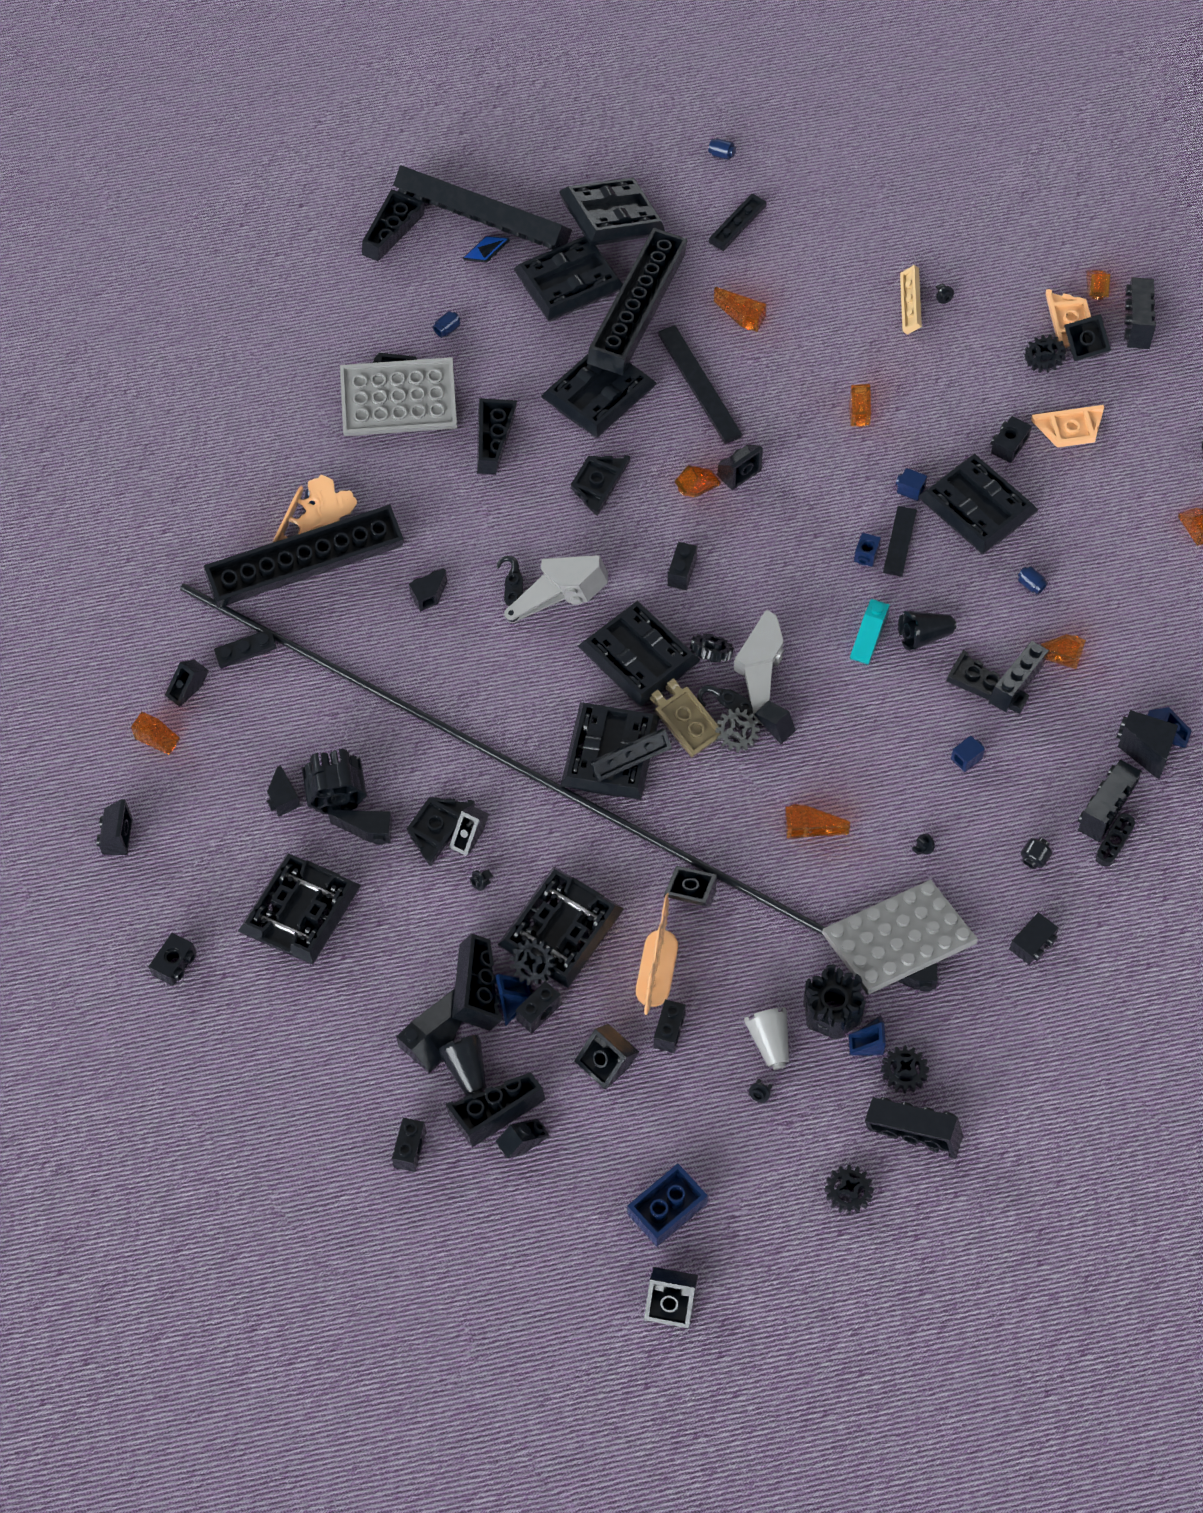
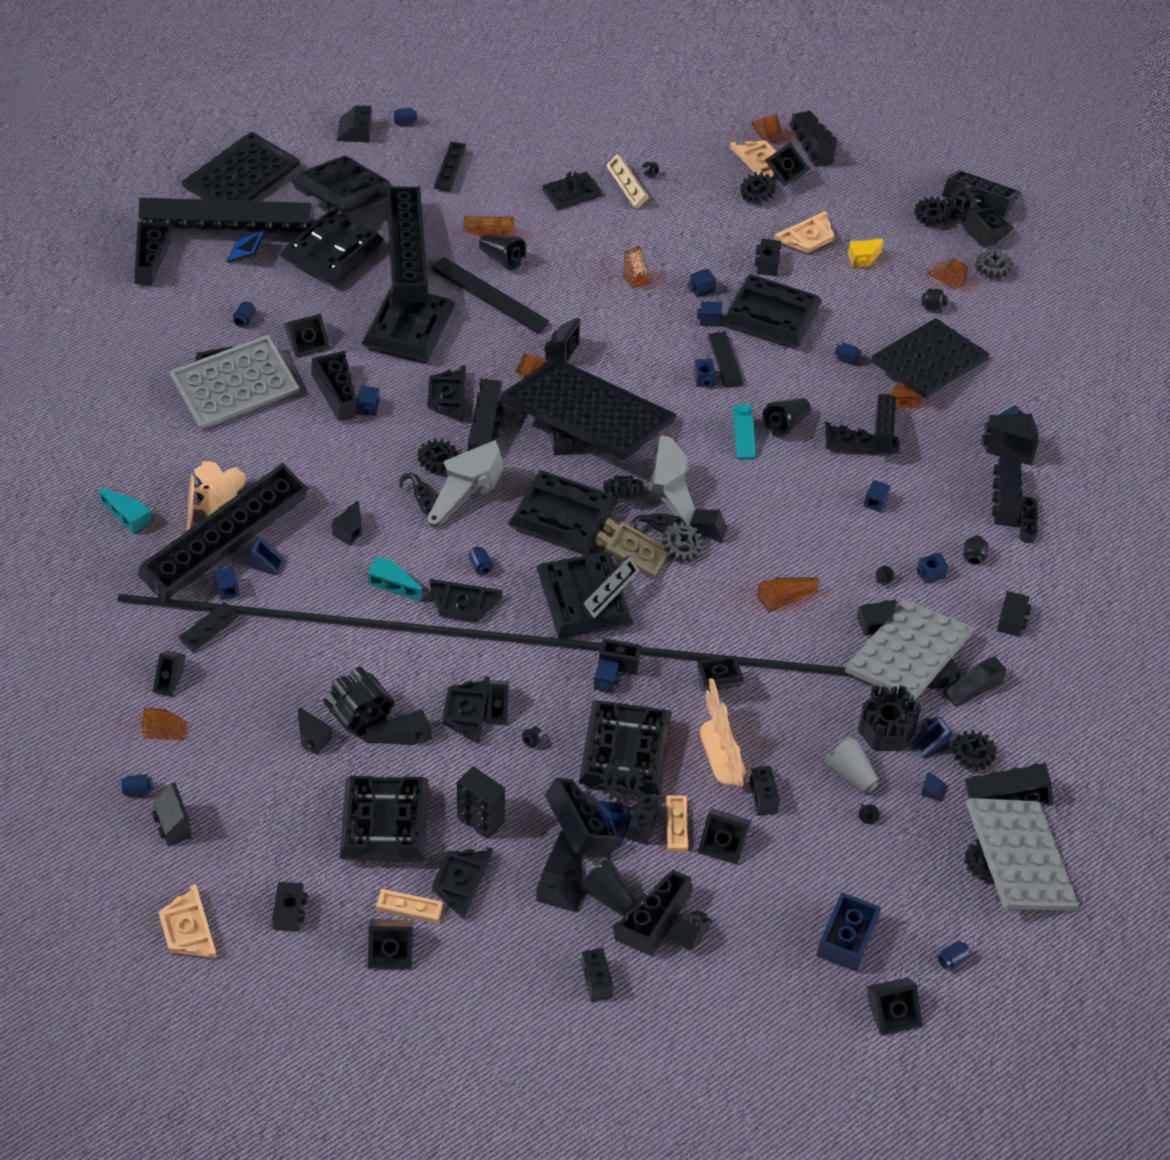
camera: 30 degrees left, 10 degrees down
(77, 940) = (187, 926): none -> light nougat wing
(102, 784) = (137, 785): none -> dark blue brick
(234, 499) = (126, 509): none -> teal slope
(242, 1033) = (390, 944): none -> black slope
(281, 1003) = (409, 906): none -> light nougat tile
(283, 609) = (226, 583): none -> dark blue brick
(334, 594) = (265, 558): none -> dark blue slope
(340, 994) = (460, 878): none -> black wing
(388, 930) = (480, 802): none -> black brick
(434, 658) = (390, 577): none -> teal slope
(493, 711) = (463, 600): none -> black wing
(494, 368) = (307, 335): none -> black slope
(515, 462) = (368, 400): none -> dark blue brick
(525, 162) = (241, 170): none -> black plate
(531, 675) = (480, 561): none -> dark blue brick
(549, 544) = (434, 454): none -> black gear
(570, 1024) = (677, 823): none -> light nougat tile
(585, 845) = (606, 676): none -> dark blue brick
(607, 829) = (625, 653): none -> black brick
(617, 523) = (486, 414): none -> black wedge
(667, 144) = (356, 125): none -> black slope
(721, 549) = (588, 408): none -> black plate
(738, 339) = (504, 249): none -> black cone
(758, 1272) = (954, 955): none -> dark blue brick
(841, 1090) = (933, 787): none -> dark blue slope
(848, 291) = (571, 190): none -> black plate
(884, 1199) = (1021, 855): none -> light grey plate
(889, 884) = (875, 615): none -> black slope
(922, 445) = (702, 282): none -> dark blue brick
(950, 997) = (977, 681): none -> black slope
(984, 849) = (932, 568): none -> dark blue brick
(1116, 617) = (930, 357): none -> black plate
(1119, 468) = (864, 252): none -> yellow slope
(1162, 551) = (934, 300): none -> black head

